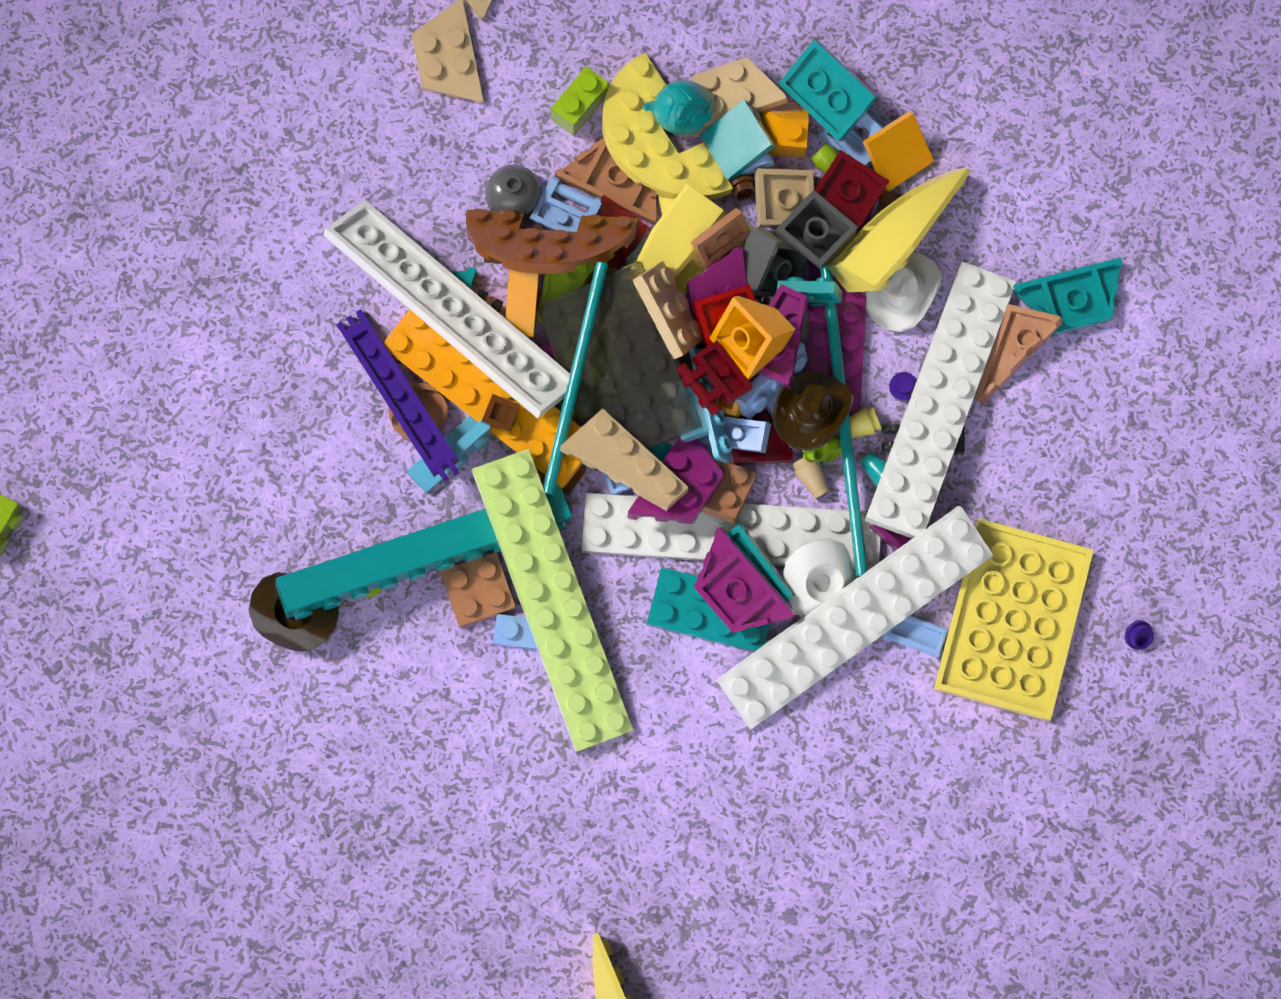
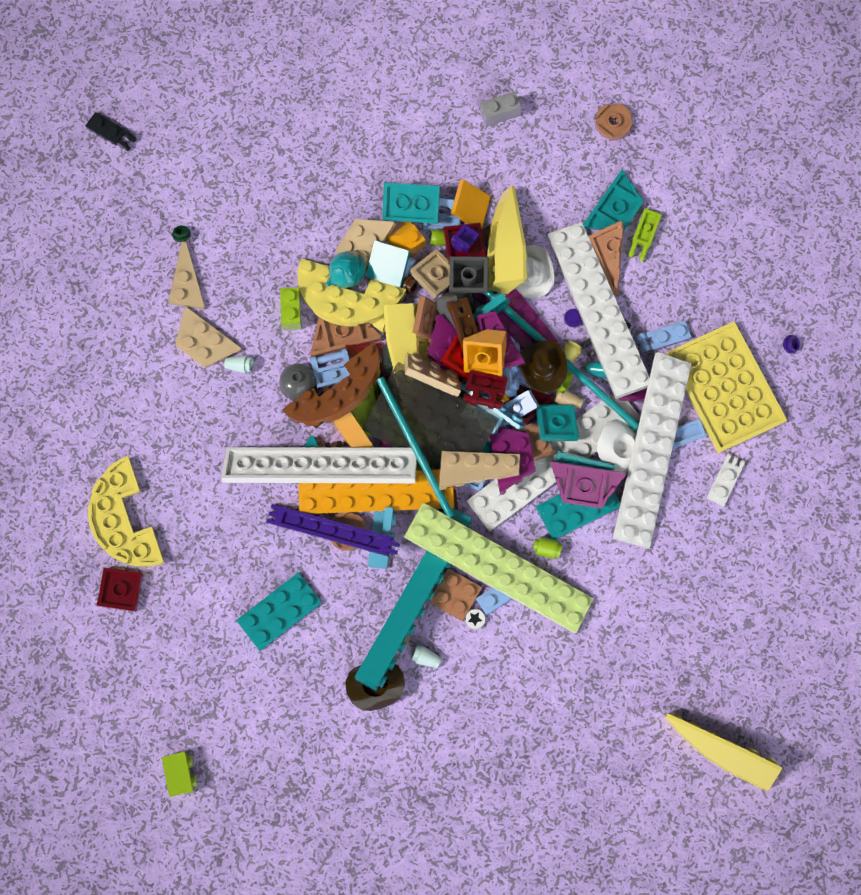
camera: 35 degrees left, 0 degrees up
(106, 262) = (119, 589): none -> dark red plate
(164, 176) = (111, 521): none -> light yellow plate
(261, 438) = (278, 611): none -> teal plate
(380, 631) = (425, 657): none -> light aqua cone
(467, 119) = (240, 364): none -> light aqua cone
(475, 637) = (475, 619): none -> white tile
(501, 413) = (393, 496): reddish brown plate -> none
(631, 626) = (547, 547): none -> lime brick
(759, 279) = (463, 322): none -> reddish brown plate
(770, 491) = (557, 423): none -> teal tile
(850, 184) = (464, 239): none -> dark purple bracket
(913, 727) = (725, 480): none -> white hinge
(992, 498) = (663, 337): none -> light blue plate
(1037, 66) = (500, 109): none -> light grey brick
(1081, 356) = (645, 232): none -> lime hinge
(1173, 180) = (613, 111): none -> nougat plate

